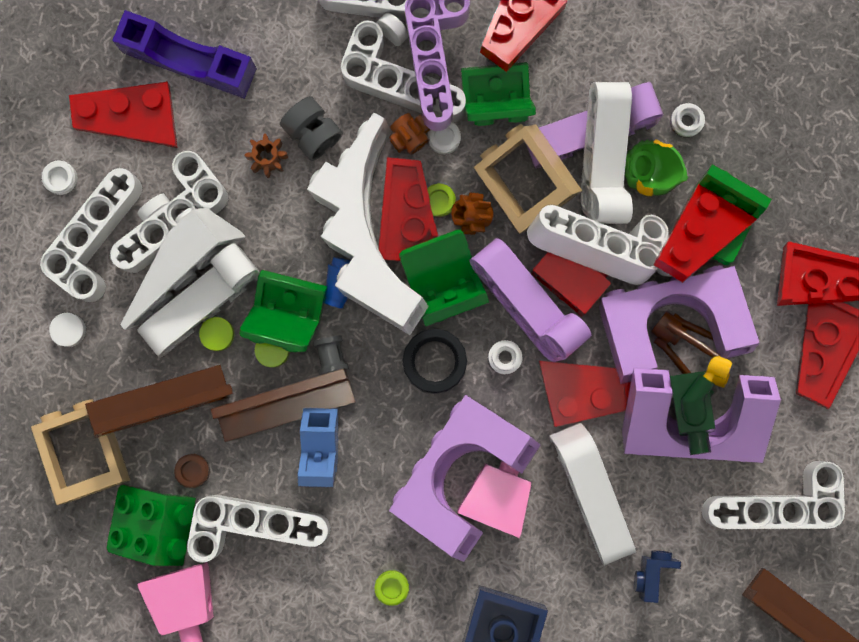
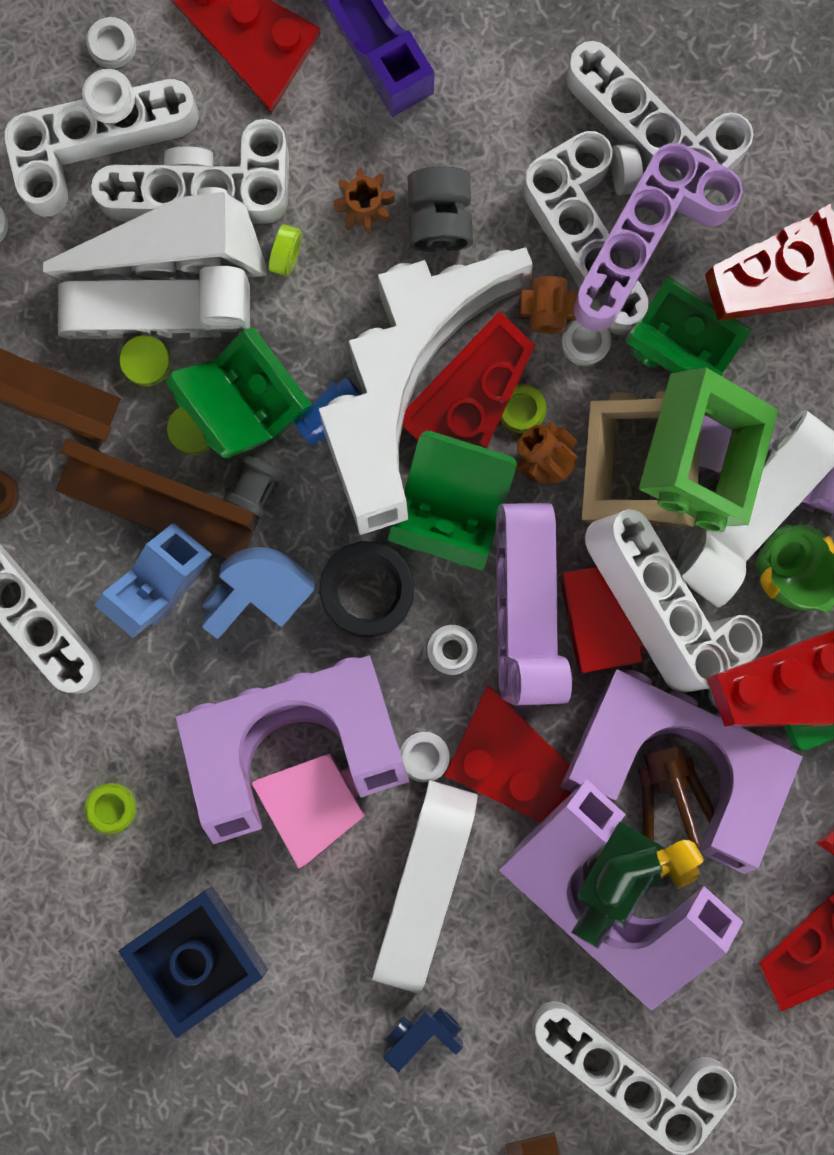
camera: 35 degrees right, 0 degrees up
(83, 207) = (108, 95): none -> white tile
(245, 215) = (285, 250): none -> lime tile
(375, 400) = (260, 577): none -> medium blue brick
(529, 130) = (666, 471): none -> bright green window
(536, 424) = (425, 756): none -> white tile

